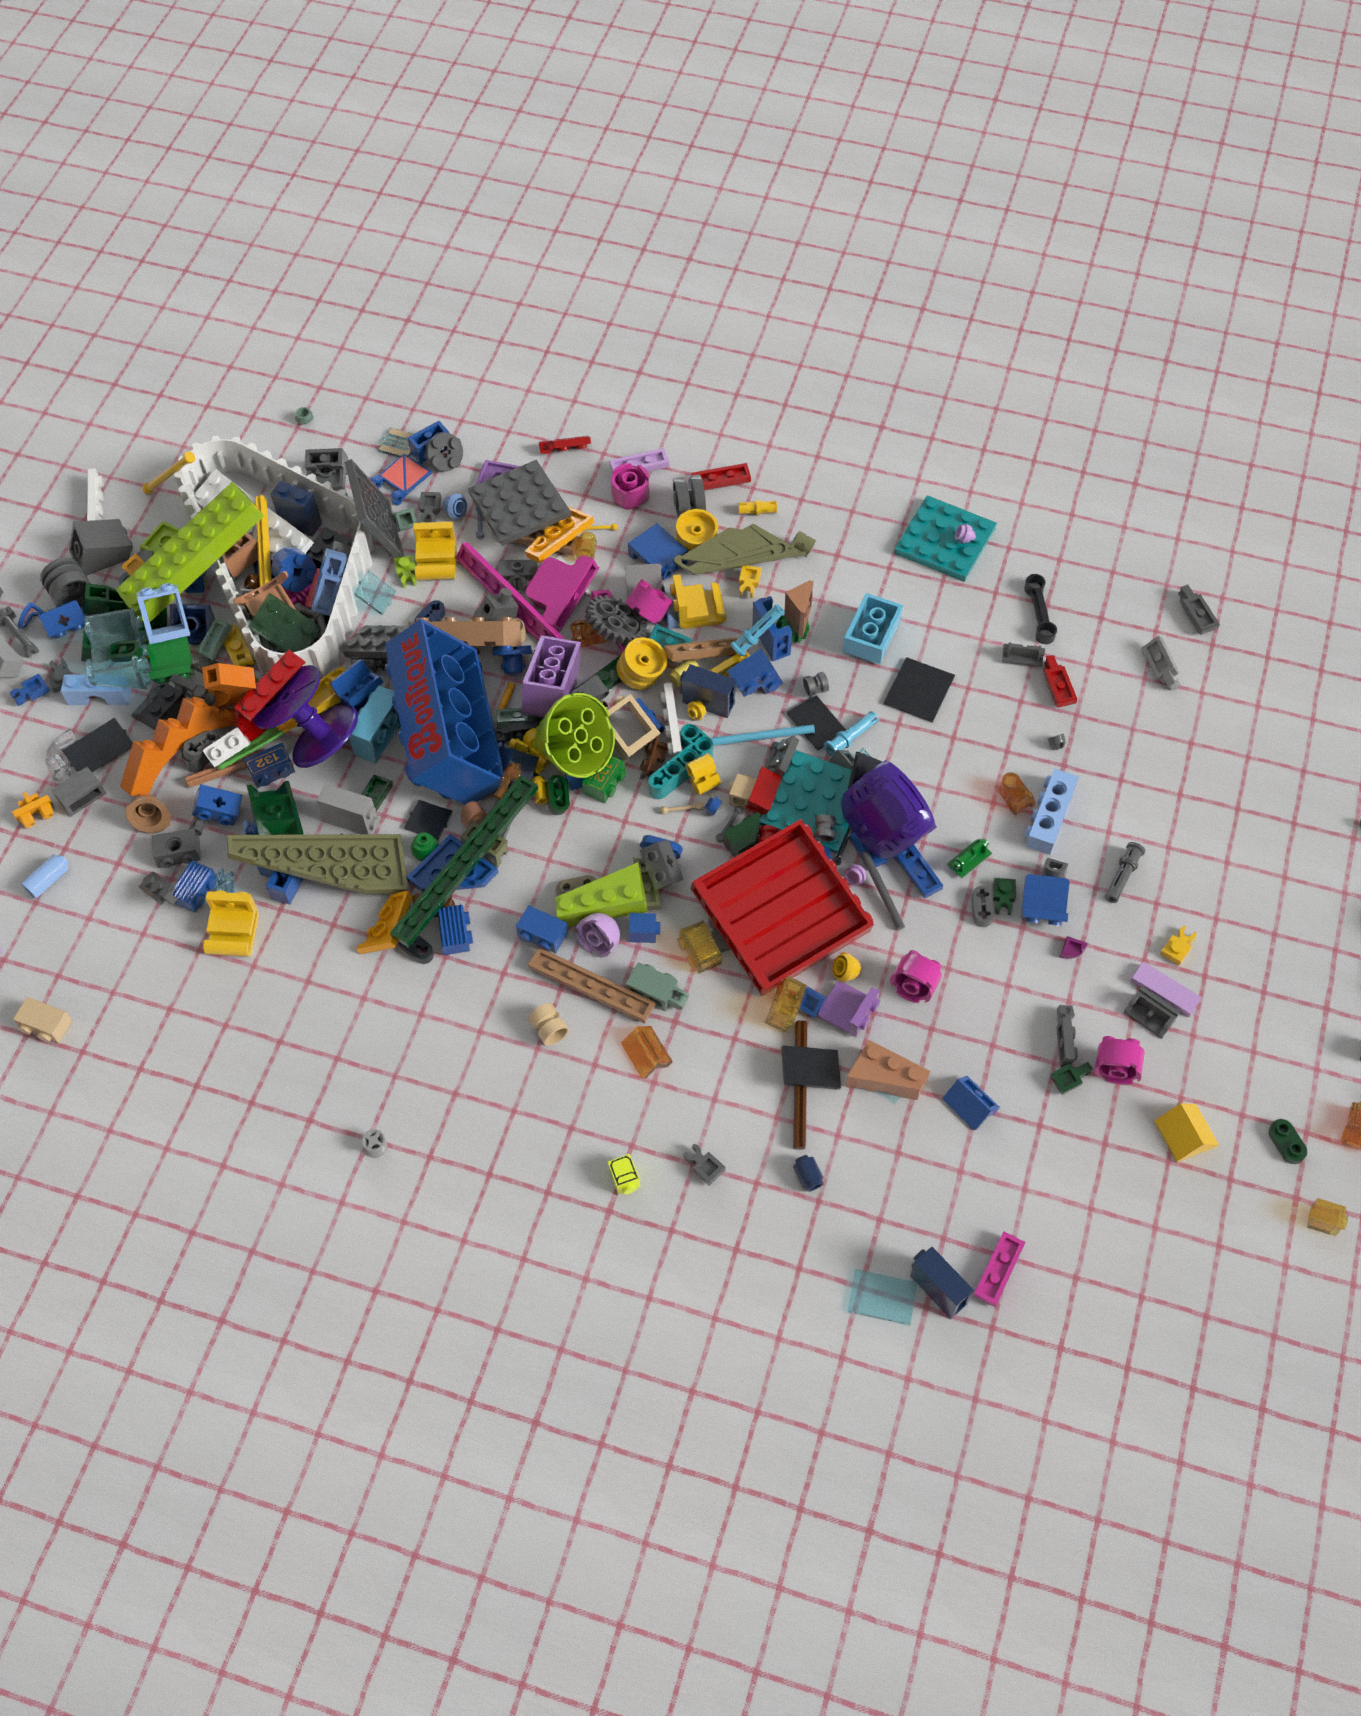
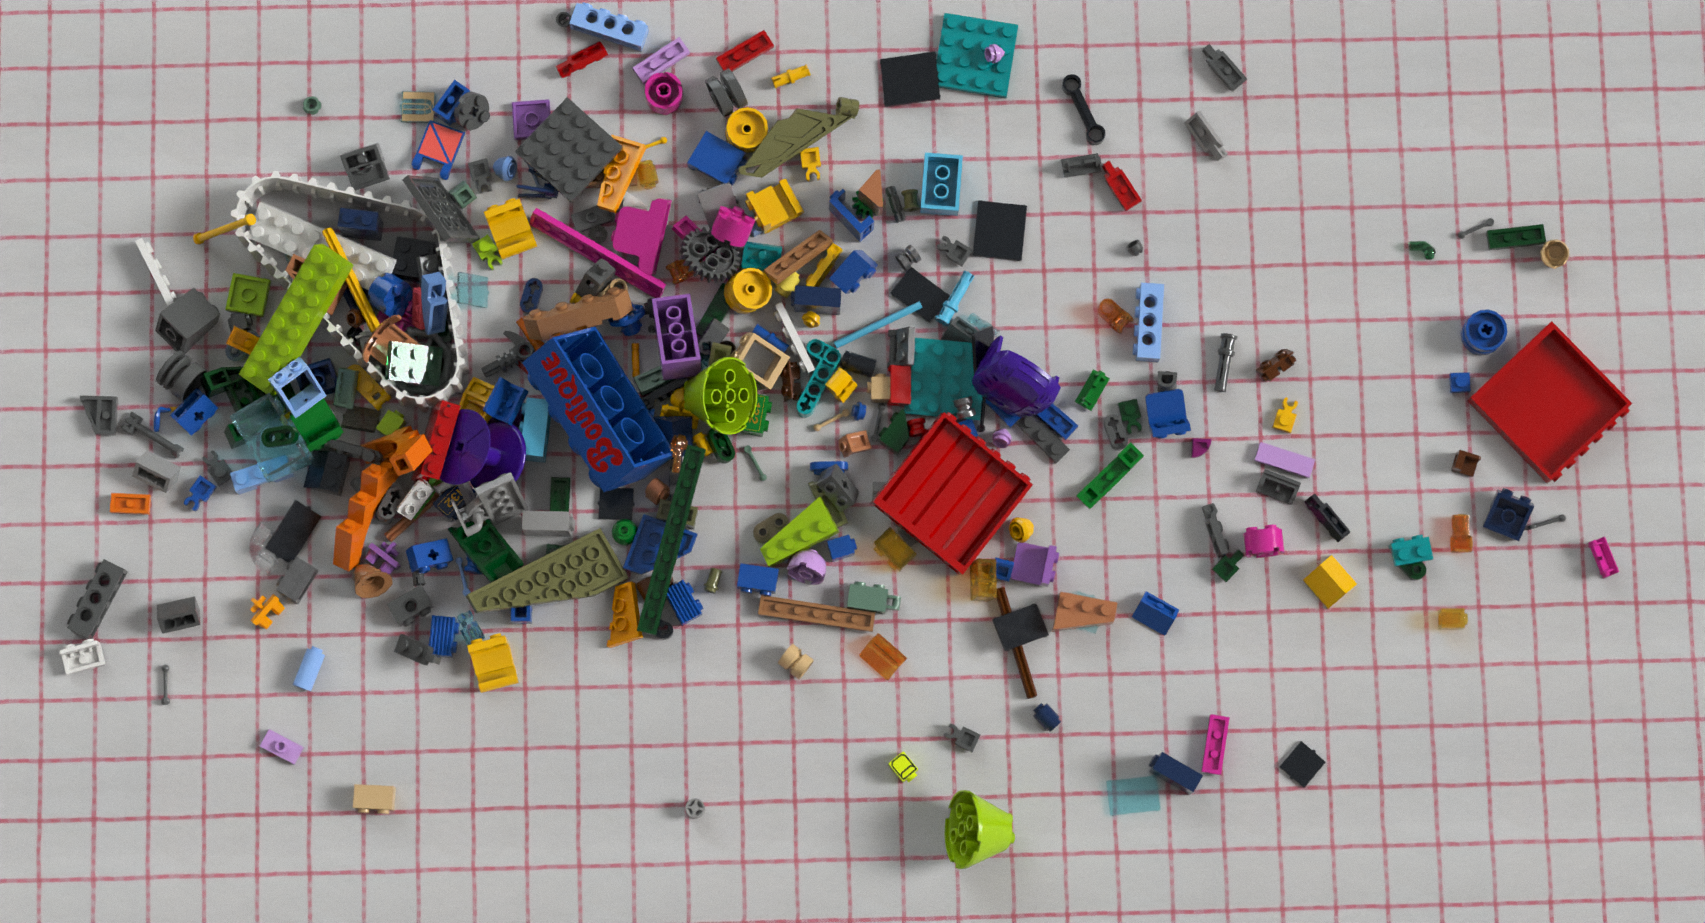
camera: 25 degrees left, 20 degrees up
(181, 792) = (375, 553): none -> medium lavender hips
(297, 763) = (496, 500): none -> light grey plate
(371, 641) = (504, 344): dark grey plate -> none
(486, 533) = (548, 190): none -> dark blue plant
(494, 920) = (713, 580): none -> olive pin
(563, 409) = (561, 16): none -> dark grey hinge
(584, 810) = (748, 449): none -> sand green hinge
(602, 425) = (597, 29): none -> light blue brick
(683, 1268) = (975, 830): none -> lime cone
(697, 833) = (854, 443): none -> nougat bracket
(729, 762) = (858, 364): none -> black piece
(748, 634) = (838, 235): medium azure pin -> none
(820, 637) = (895, 204): none -> dark grey axle
(836, 636) = (910, 200): none -> olive bush
(868, 693) = (956, 252): none -> dark grey plate
(873, 538) = (910, 79): none -> black piece
(882, 890) = (1029, 446): dark grey bar -> none
(901, 887) = (1043, 437): none -> dark grey plate
(916, 977) = (1081, 521): dark pink brick -> none
(966, 945) = (1110, 476): none -> green slope
(1100, 1328) = (1302, 764): none -> black piece
(1173, 893) = (1269, 367): none -> reddish brown hinge
(1201, 1061) = (1327, 517): none -> black hinge
(1294, 1125) = (1411, 551): none -> teal bracket

